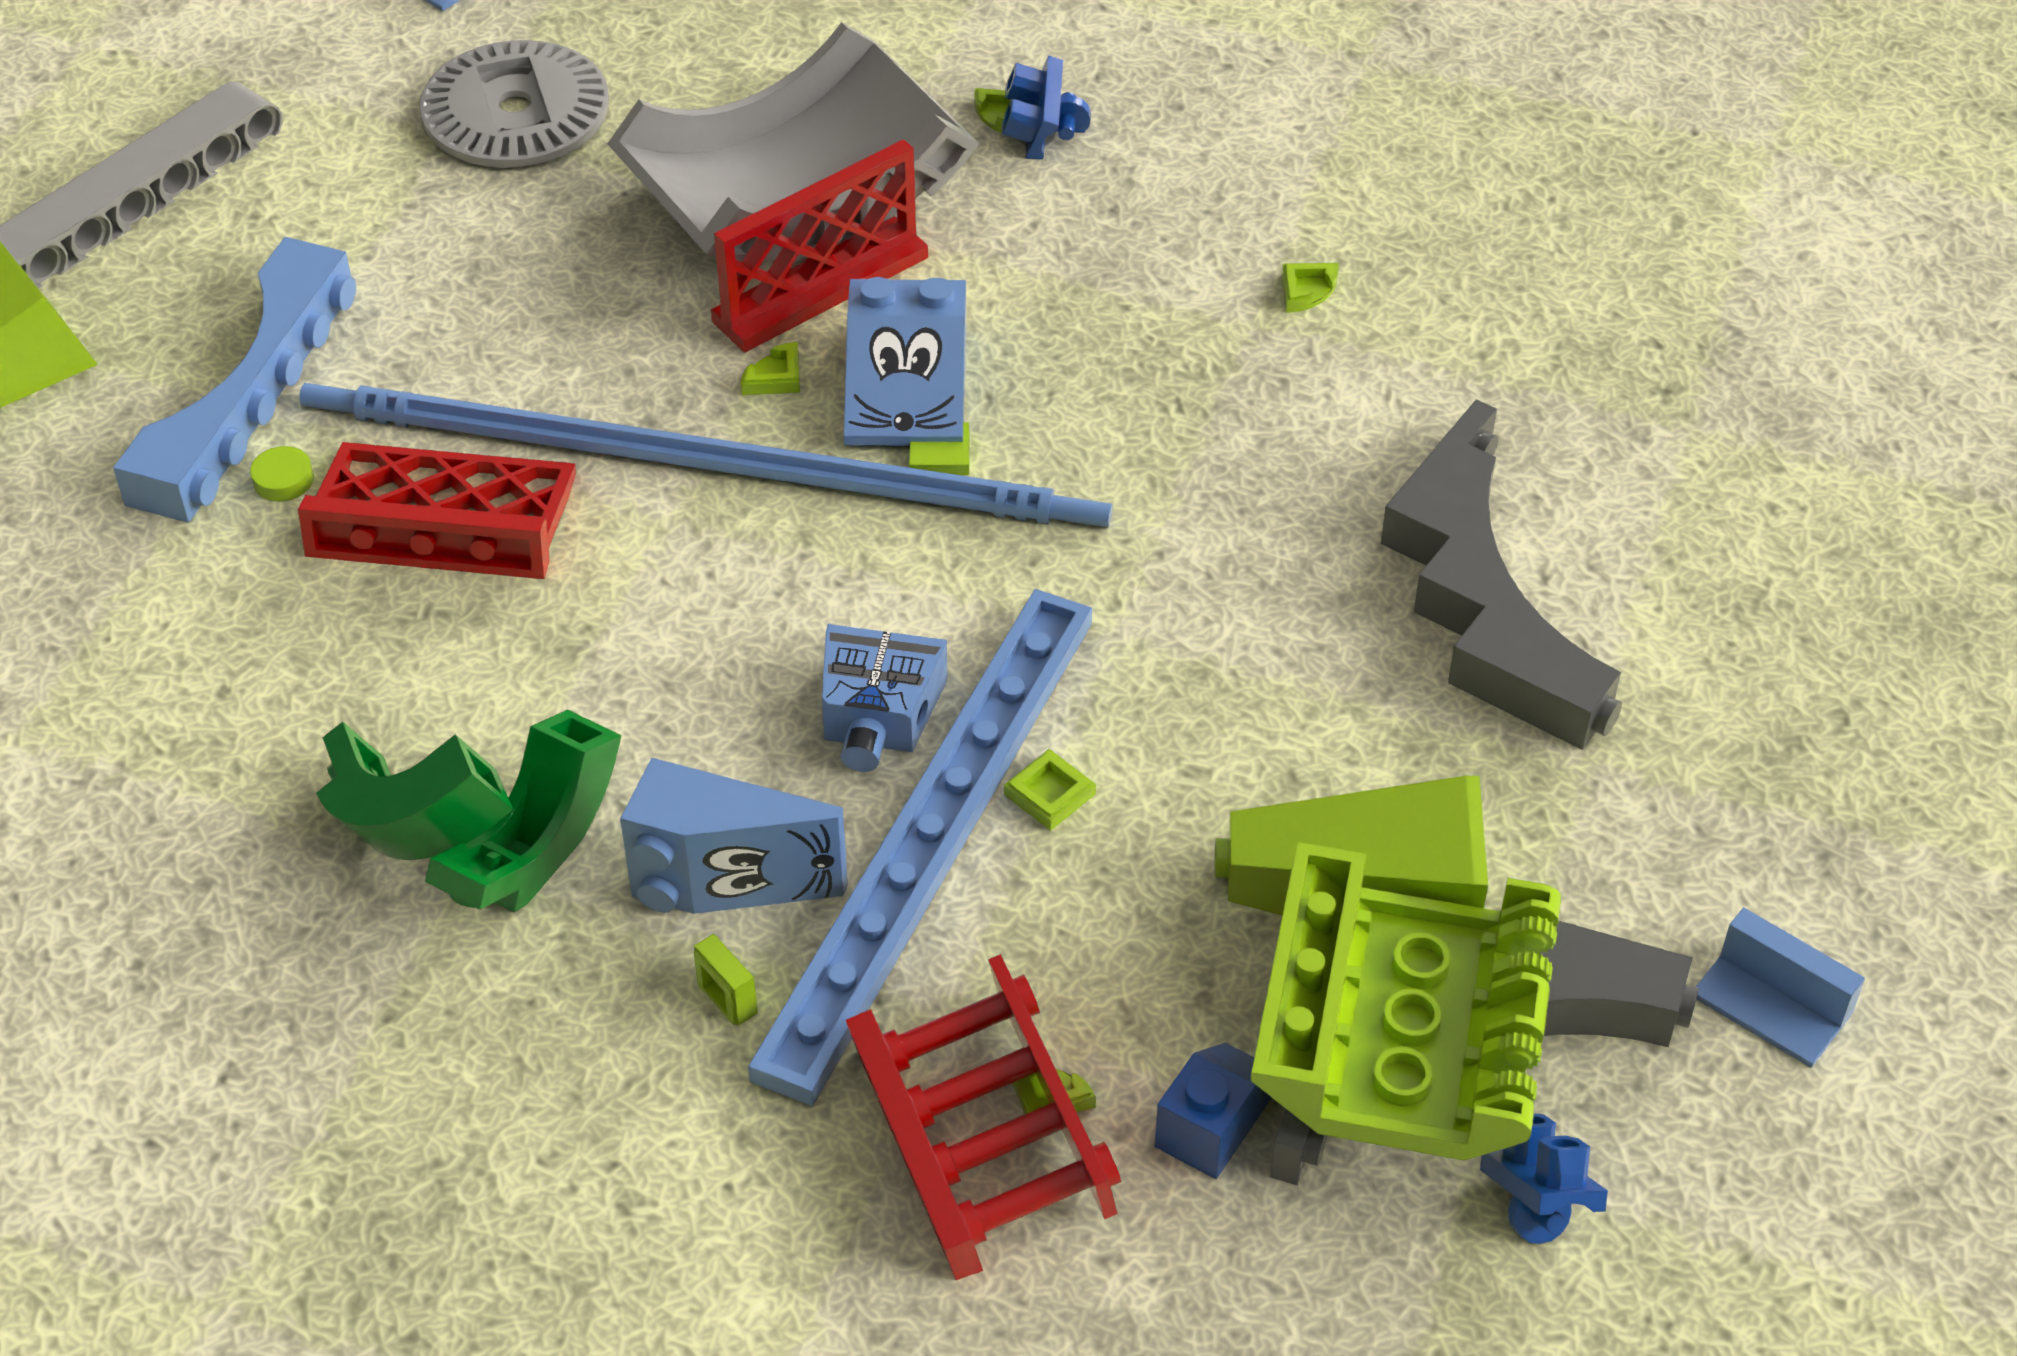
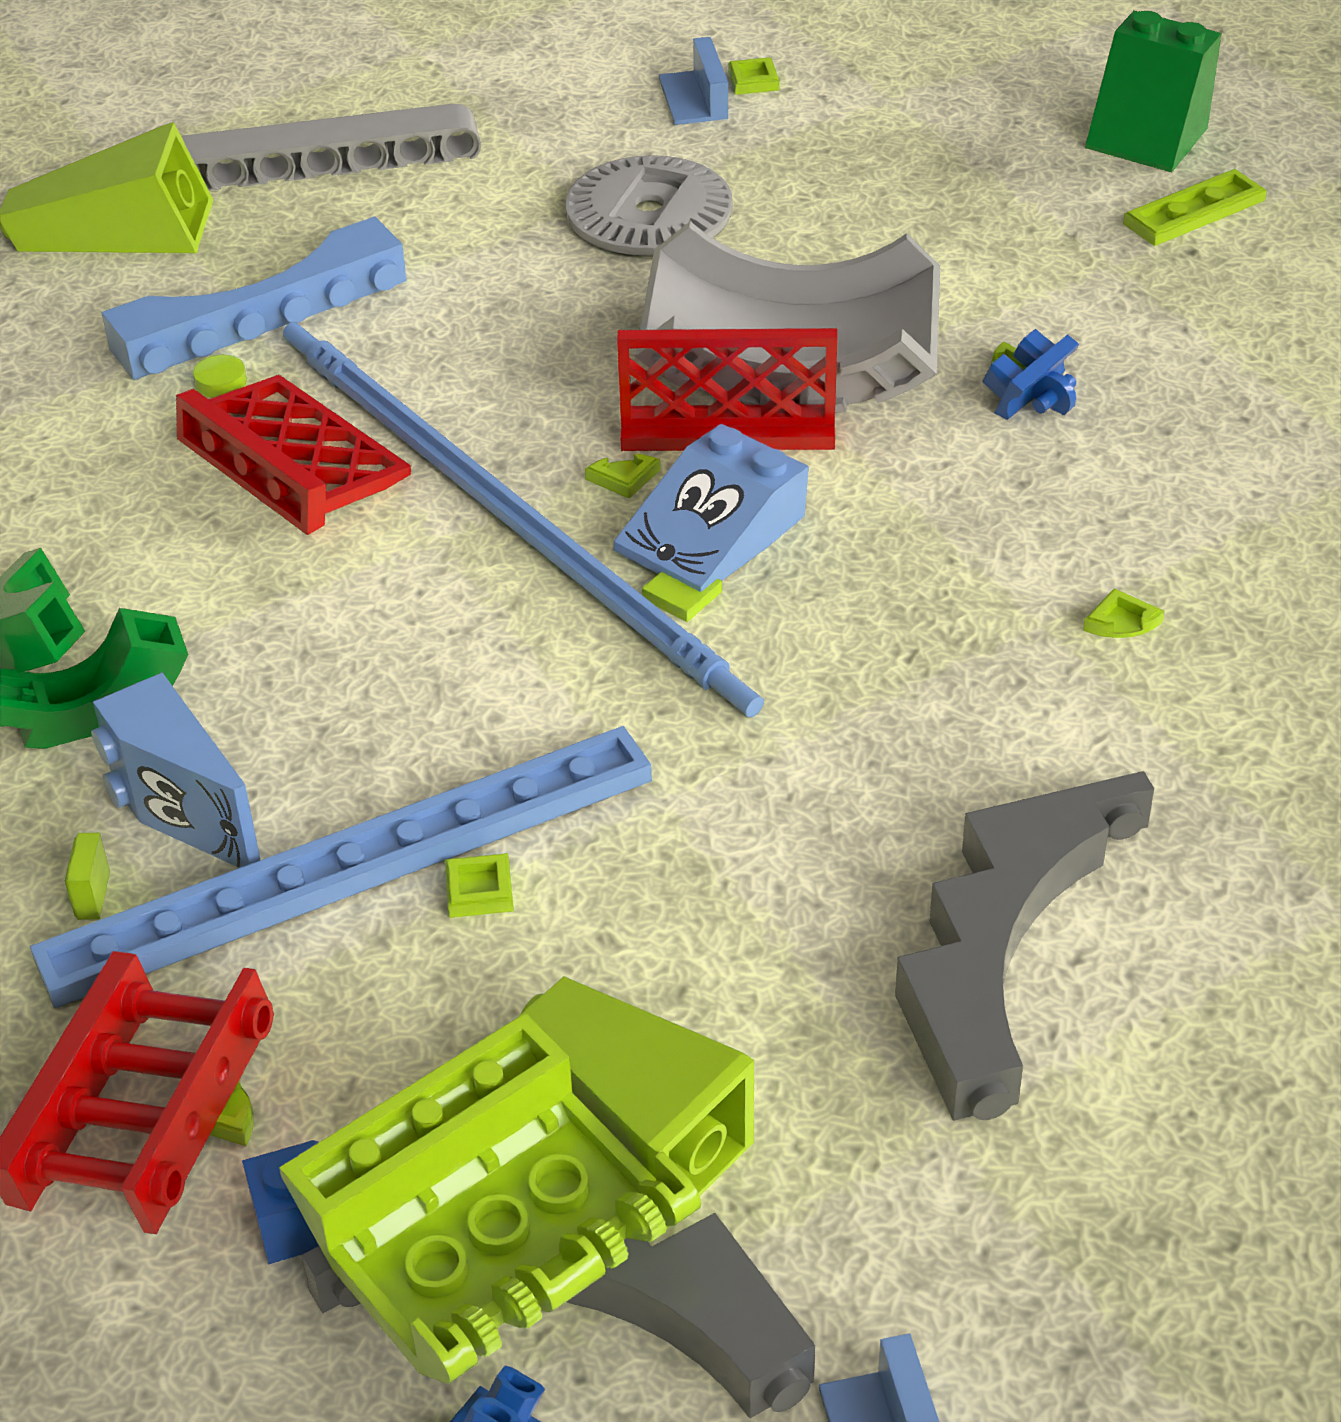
camera: 40 degrees right, 5 degrees down
(879, 691) = (425, 736): medium blue torso -> none

